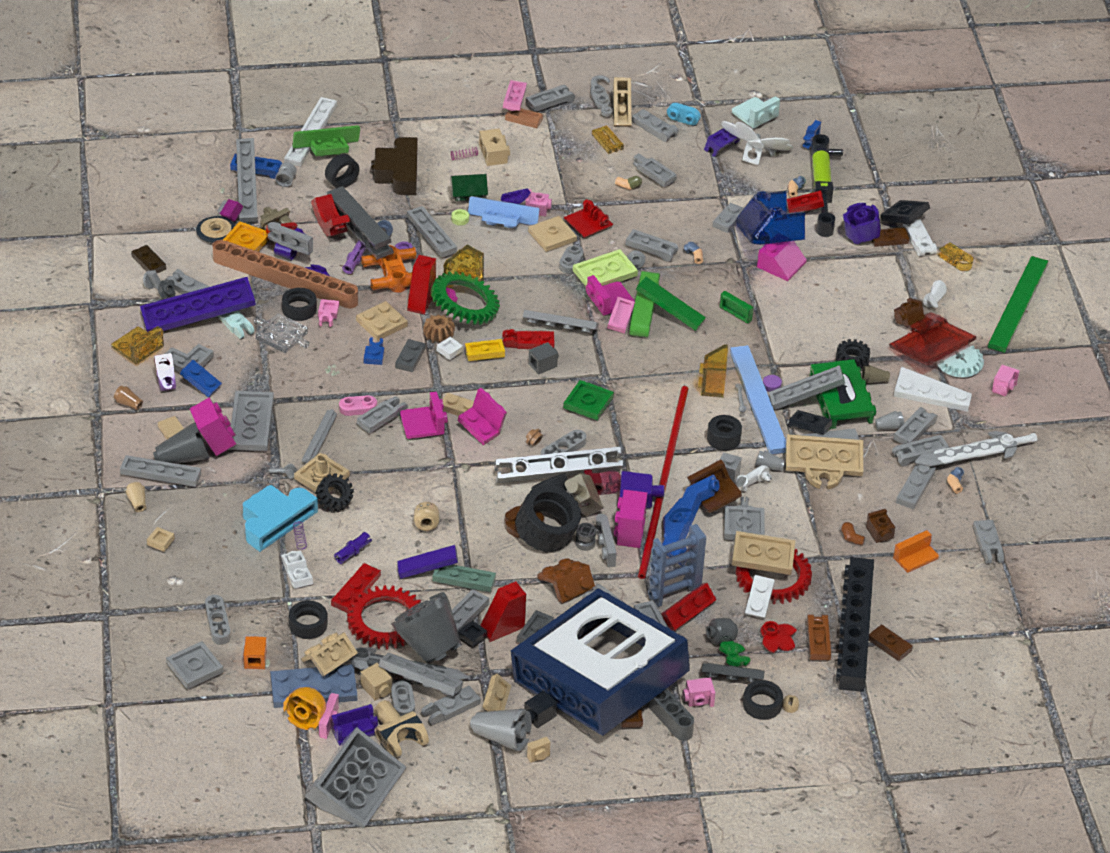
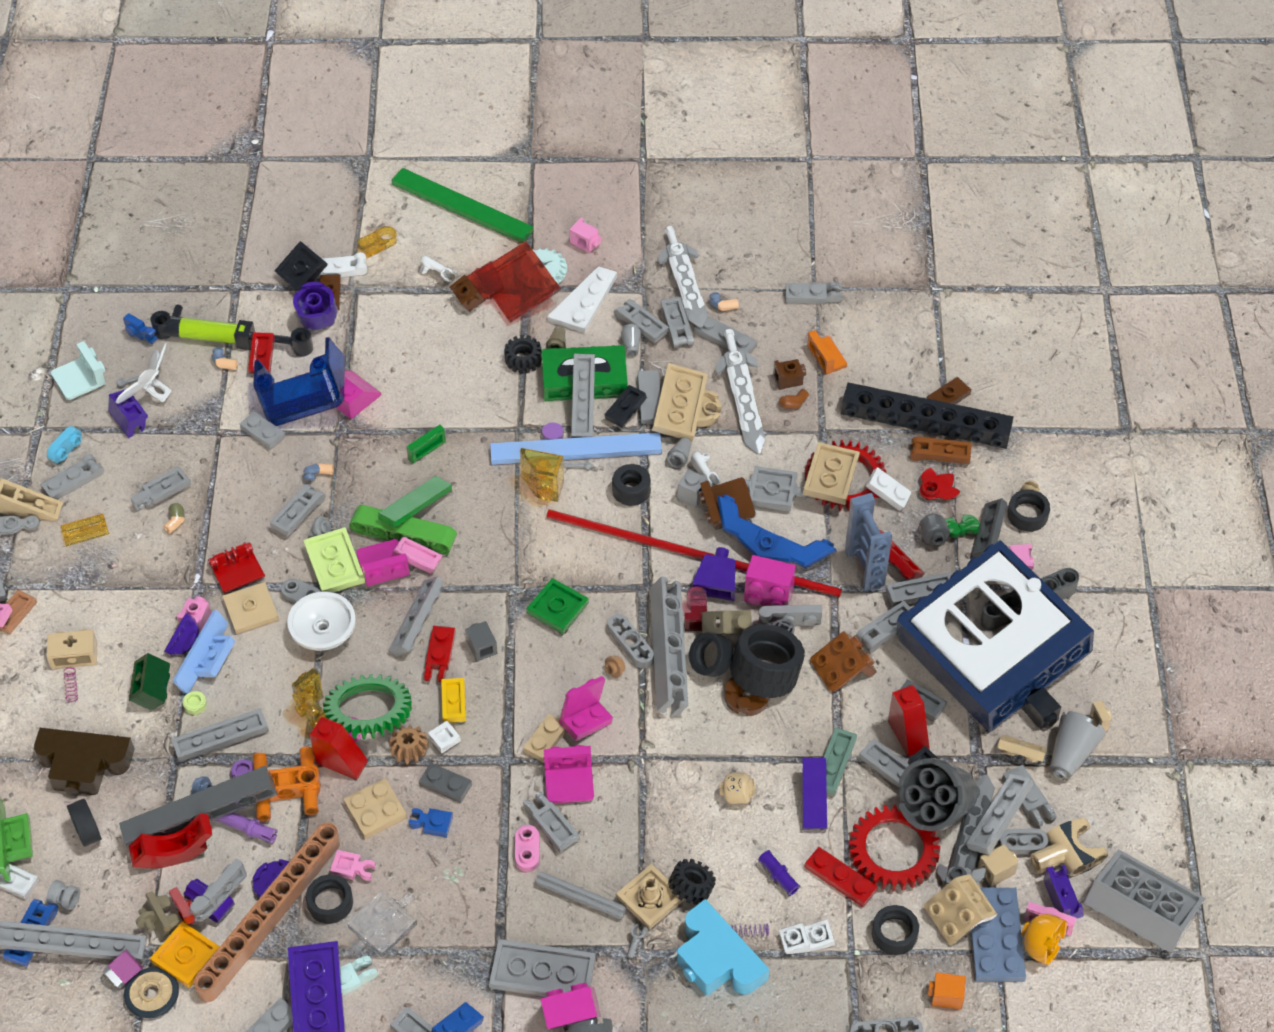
camera: 80 degrees left, 10 degrees up
(540, 265) = (319, 612): none -> white dish
(878, 487) = (742, 389): none -> sword

